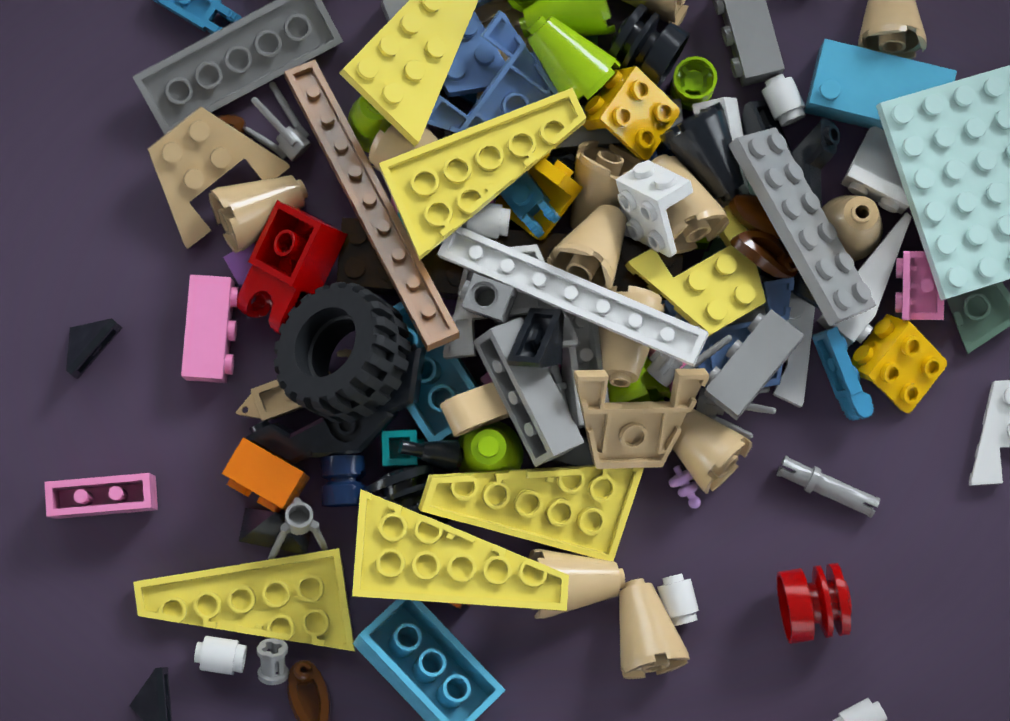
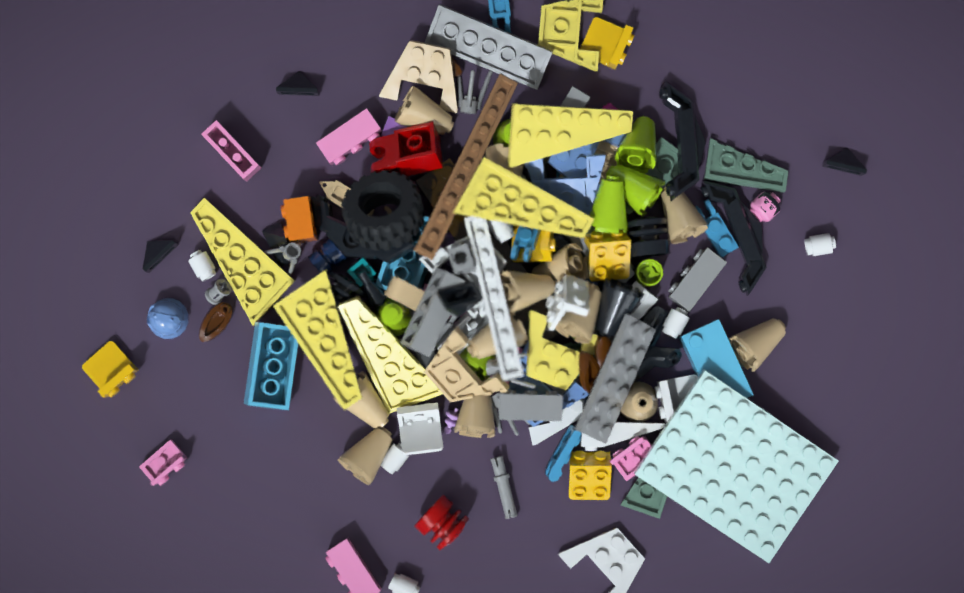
camera: 50 degrees right, 5 degrees up
(666, 535) = (420, 428): none -> white bracket

